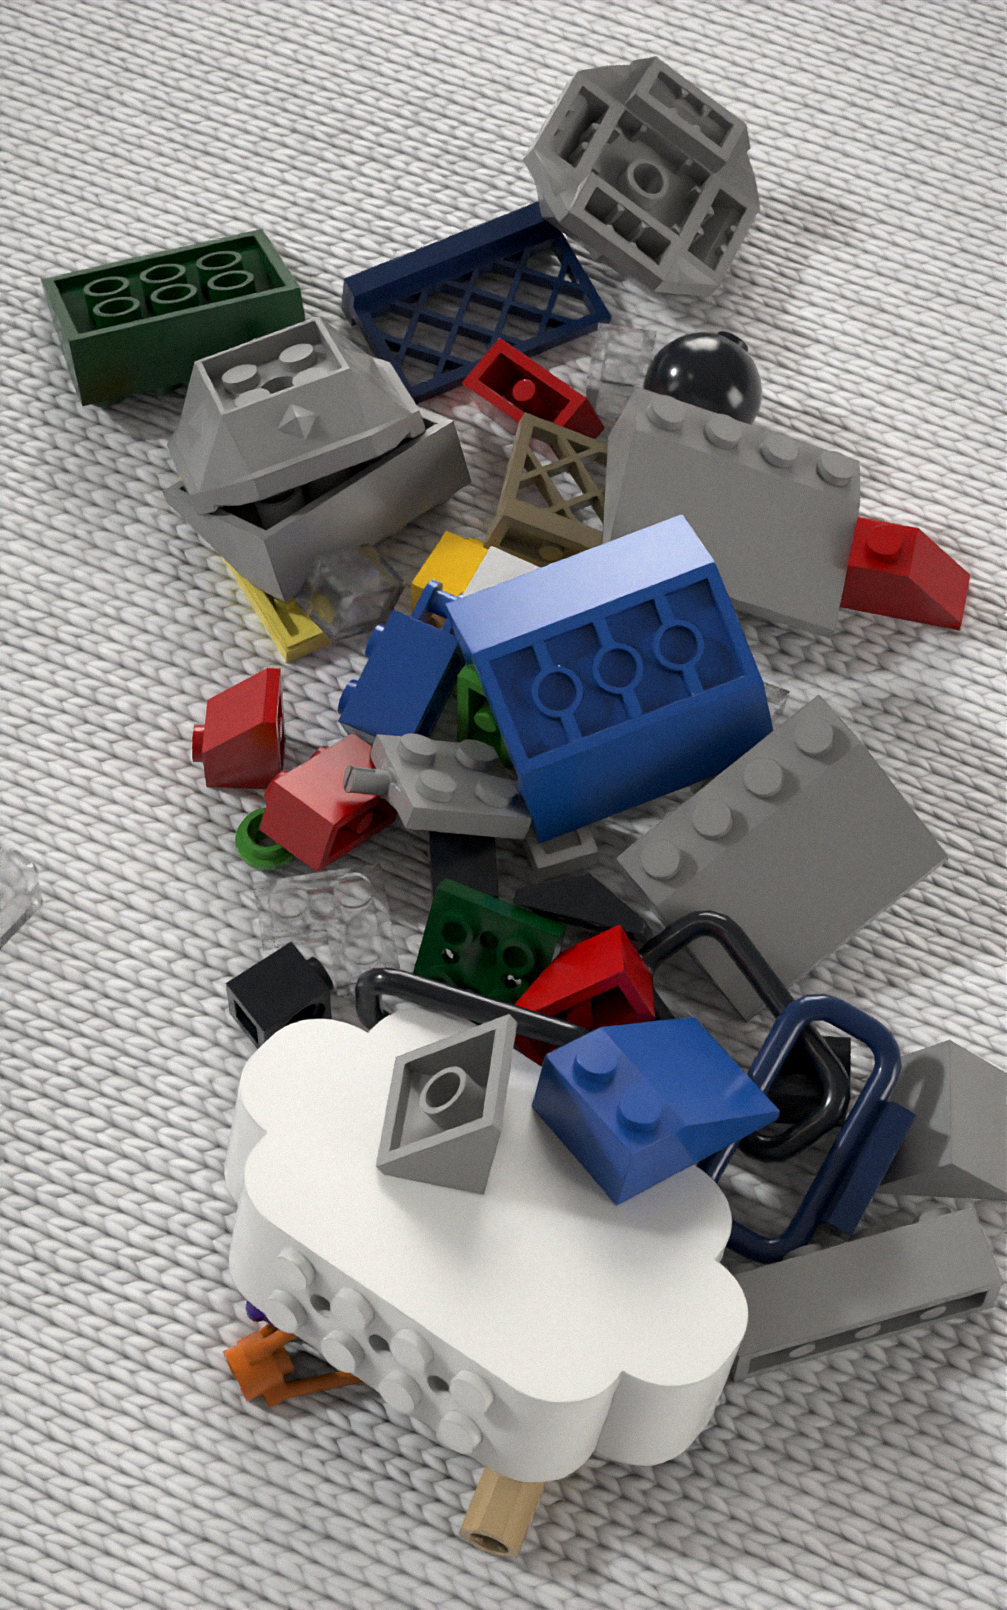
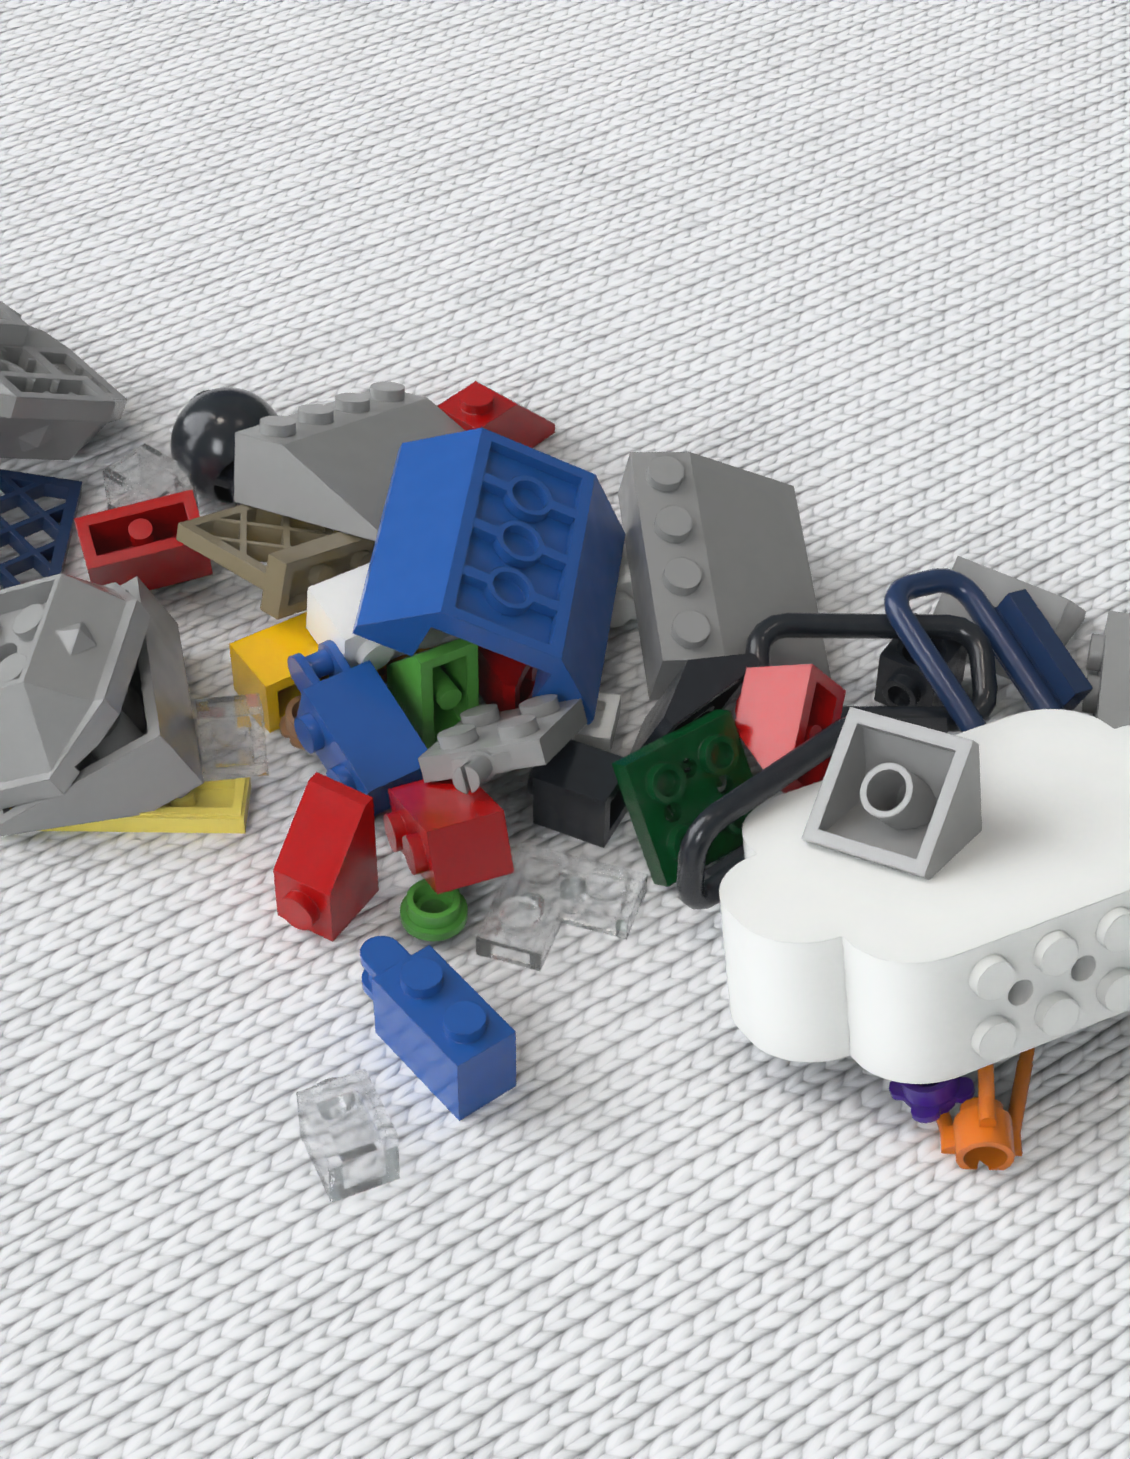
camera: 60 degrees left, 15 degrees down
(130, 900) = (438, 1025): none -> blue brick
(279, 993) = (619, 963): black brick -> none
(647, 1102) = (962, 696): blue slope -> none

